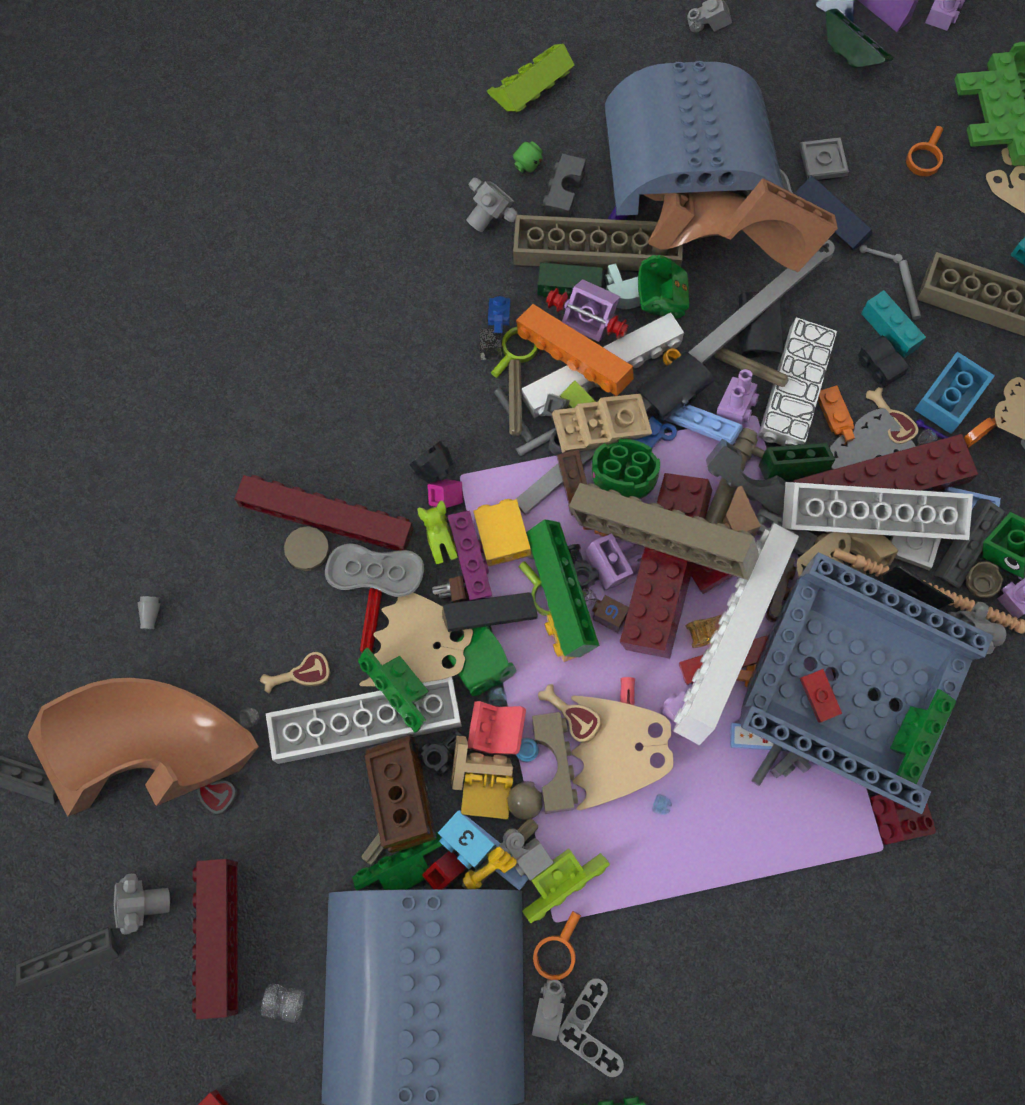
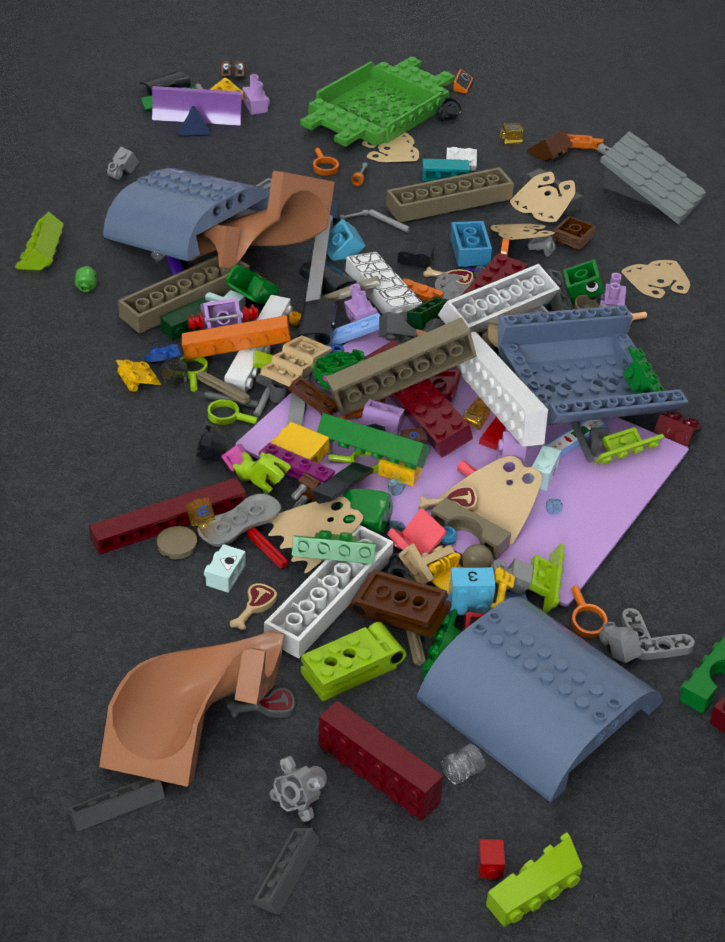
camera: 50 degrees left, 30 degrees down
(148, 611) = (104, 642): light grey cone -> none
(311, 614) = (225, 568): none -> light aqua brick
(331, 814) = (351, 660): none -> lime hinge
(339, 539) = (200, 512): none -> clear yellow brick
(460, 317) = (135, 373): none -> yellow hinge
(490, 203) = (92, 306): light grey piece -> none
(499, 440) = (229, 420): none -> lime piece
(540, 651) = (395, 487): none -> clear light blue hinge
(554, 403) = (255, 369): dark grey tile -> none
(568, 172) = (124, 277): dark grey arch -> none
(697, 756) = (547, 464): none -> light aqua brick
(814, 793) = (625, 442): none -> lime bracket
(820, 695) = (572, 392): red plate -> none
(824, 288) = (344, 241): none -> medium azure slope
(852, 42) = (225, 135): dark green wedge -> none
(893, 324) = (392, 234): teal brick -> none
(942, 201) = (359, 176): none -> orange hinge

